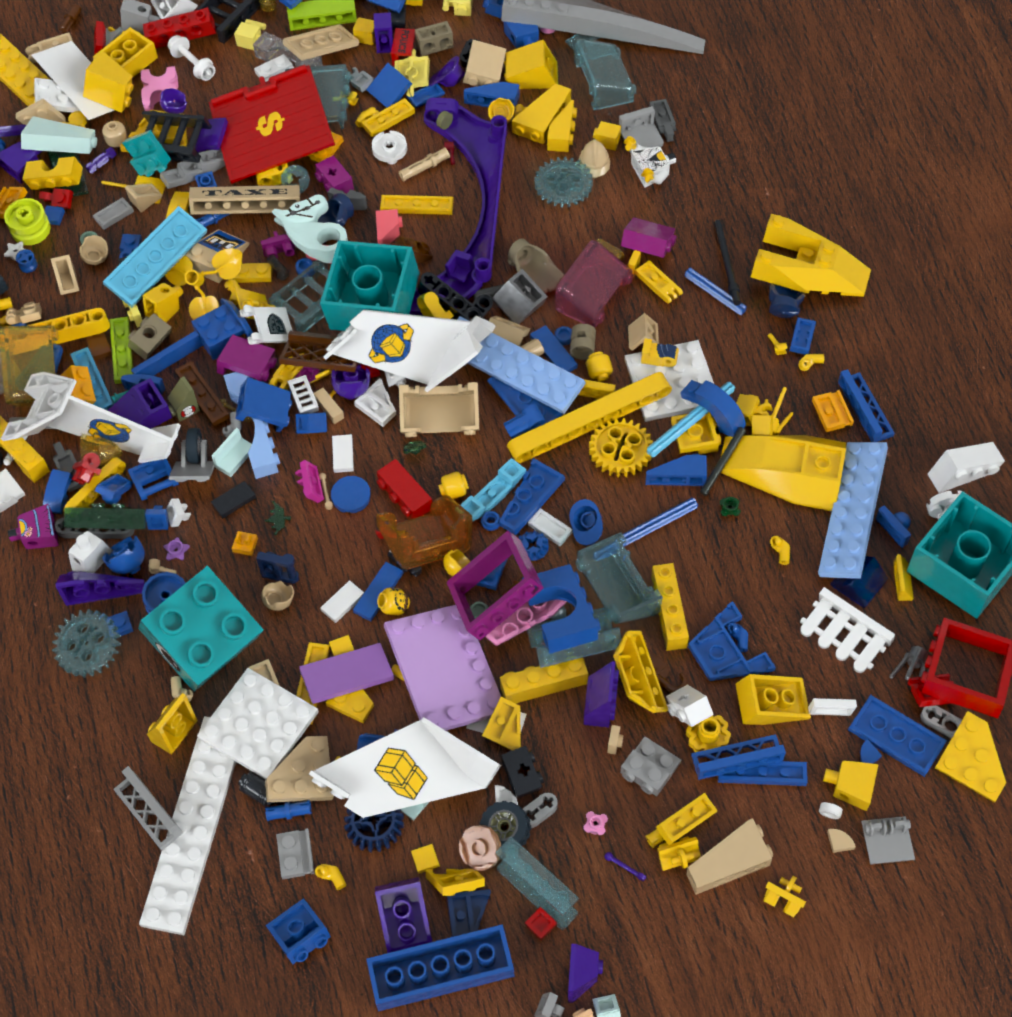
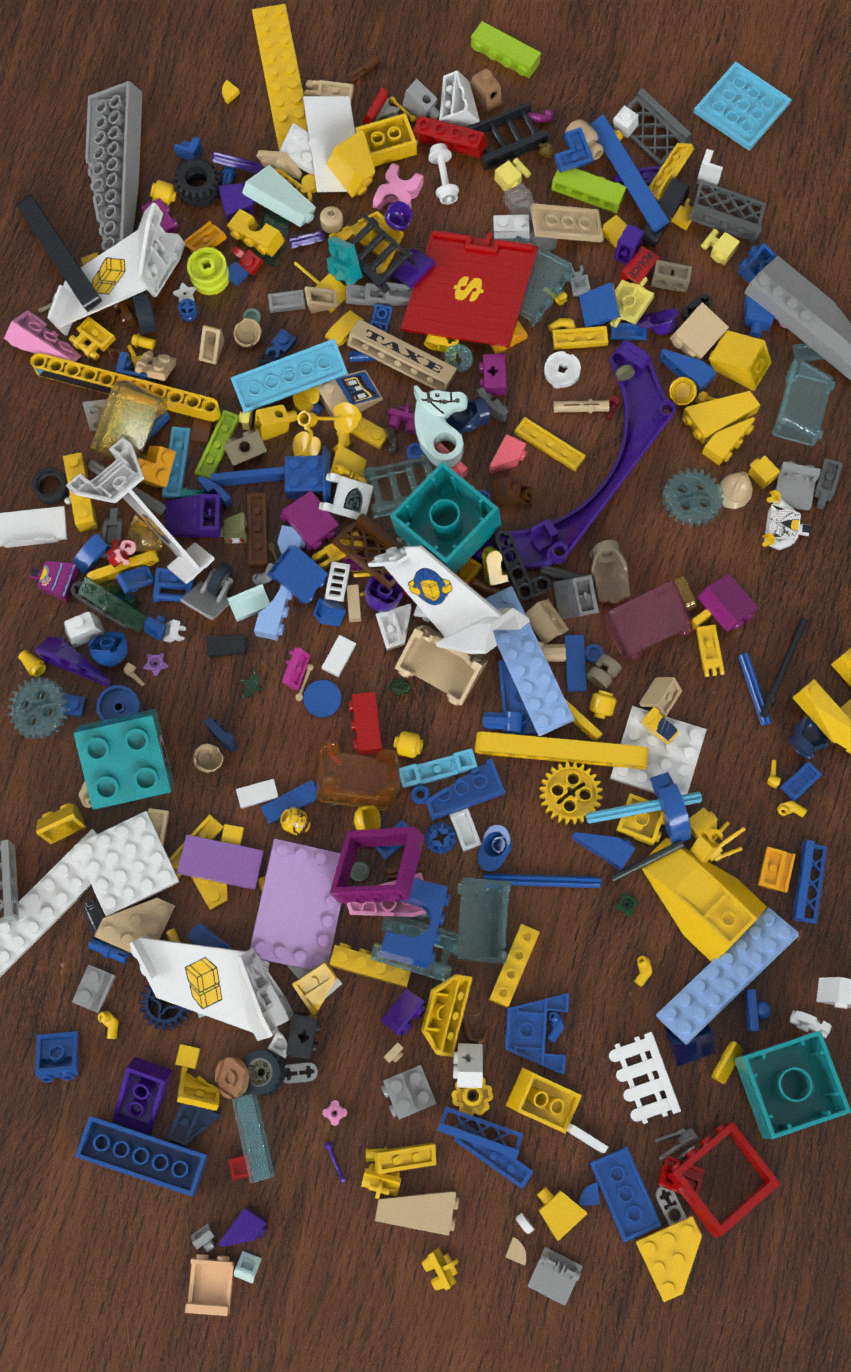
camera: 30 degrees right, 15 degrees up
(56, 610) = (32, 664): none -> yellow cone
(244, 543) = (211, 692): light orange tile -> none

